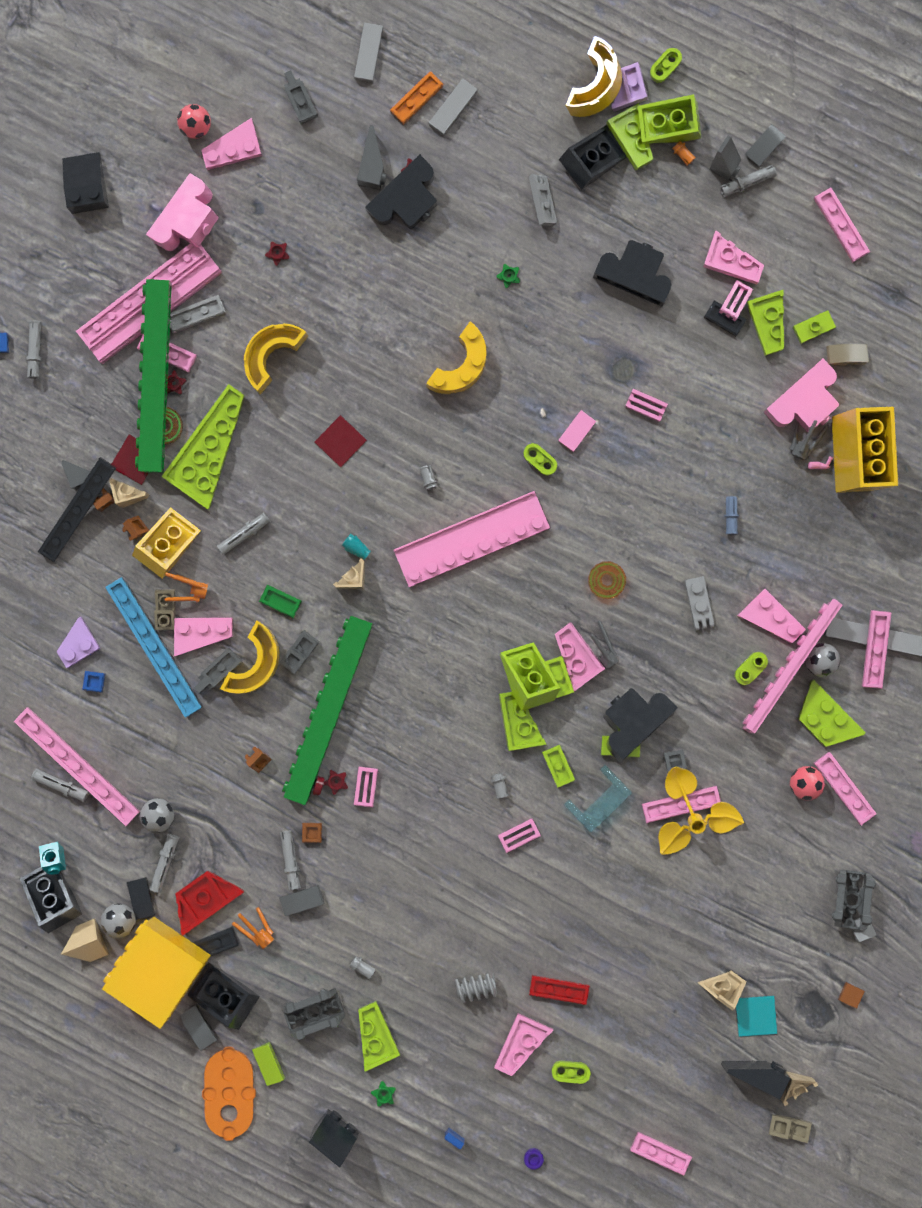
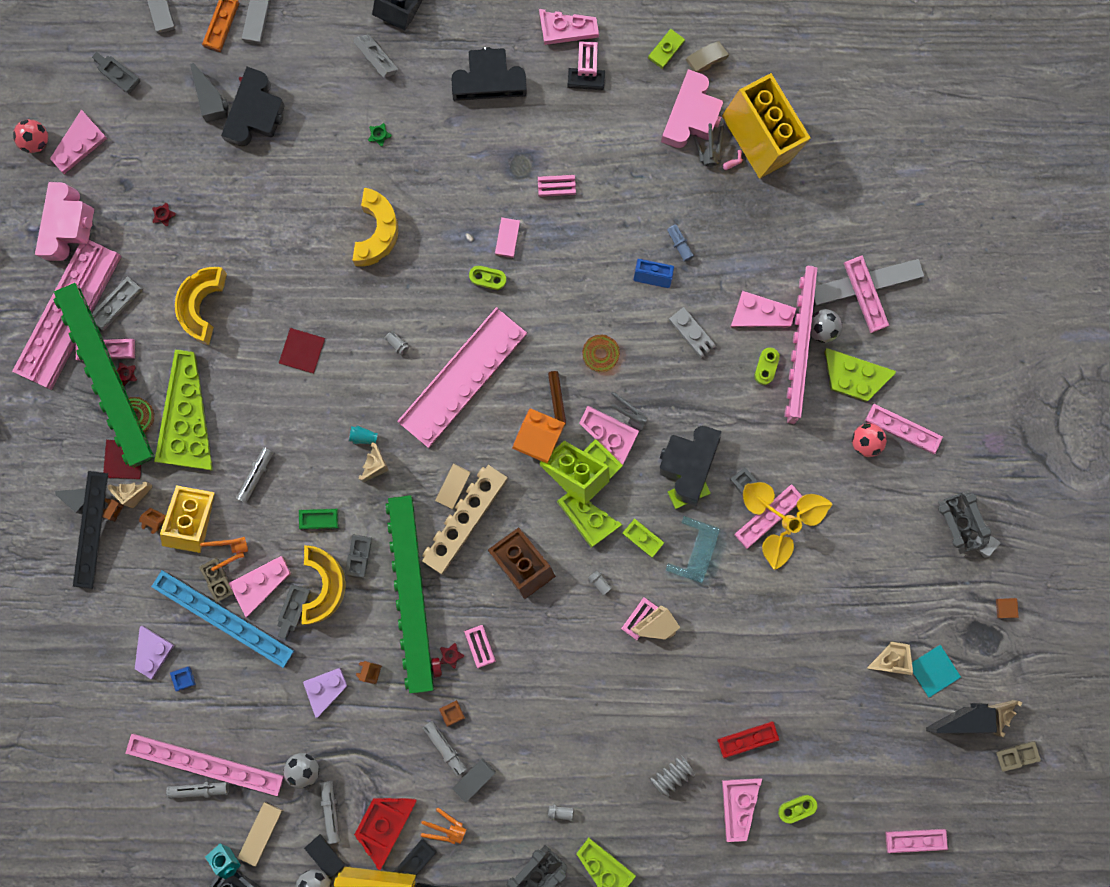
camera: 35 degrees left, 5 degrees down
(95, 850) = (260, 834): none -> tan tile
(211, 754) = (324, 689): none -> lavender wing
(368, 696) = (441, 563): none -> tan brick
(413, 633) = (452, 486): none -> tan slope
(439, 732) = (522, 563): none -> reddish brown slope
(512, 627) = (538, 435): none -> orange slope
(530, 849) = (658, 625): none -> tan slope
(546, 601) = (556, 396): none -> reddish brown axle
(693, 531) = (653, 273): none -> blue slope
(768, 321) = (623, 61): lime wing -> none

